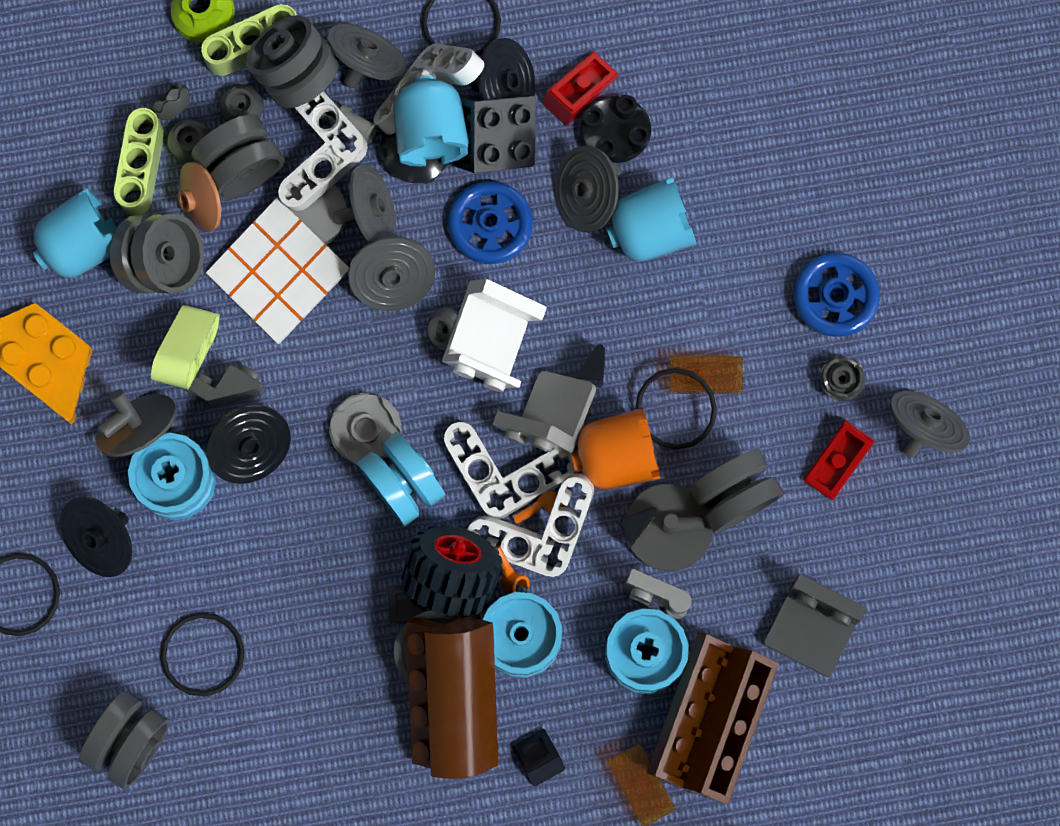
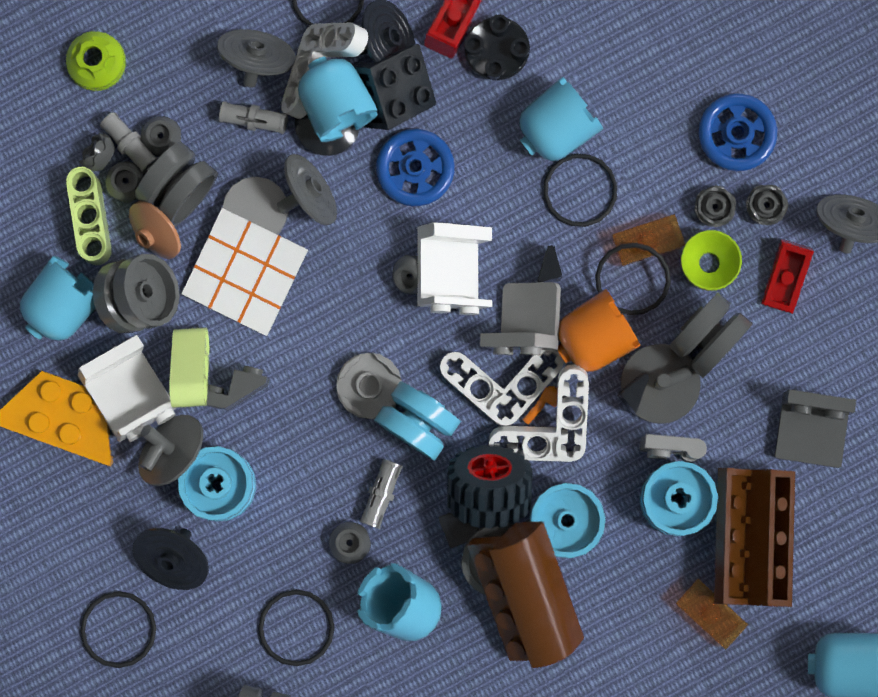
camera: 15 degrees left, 5 degrees up
(113, 349) = (126, 390): none -> white panel
(205, 100) = (128, 142): none -> light grey pin
(232, 39) = (154, 58): yellowish green beam -> none
(248, 444) = (273, 434): black shield -> none
(292, 61) = (195, 83): dark grey wheel -> none
(297, 592) = (359, 548): none -> dark grey plate
(316, 661) = (399, 603): none -> medium azure cylinder
(331, 151) = (255, 151): white beam -> none
(338, 544) = (381, 493): none -> light grey pin
(391, 273) = (346, 242): dark grey shield -> none
(510, 577) = (540, 473): orange hand -> none
(539, 757) = (615, 619): black slope -> none
(587, 188) = (491, 111): dark grey shield -> none
(653, 337) = (593, 221): none -> black piece
(768, 398) = (720, 246): none -> lime piece
(790, 351) = (722, 198): none -> dark grey plate

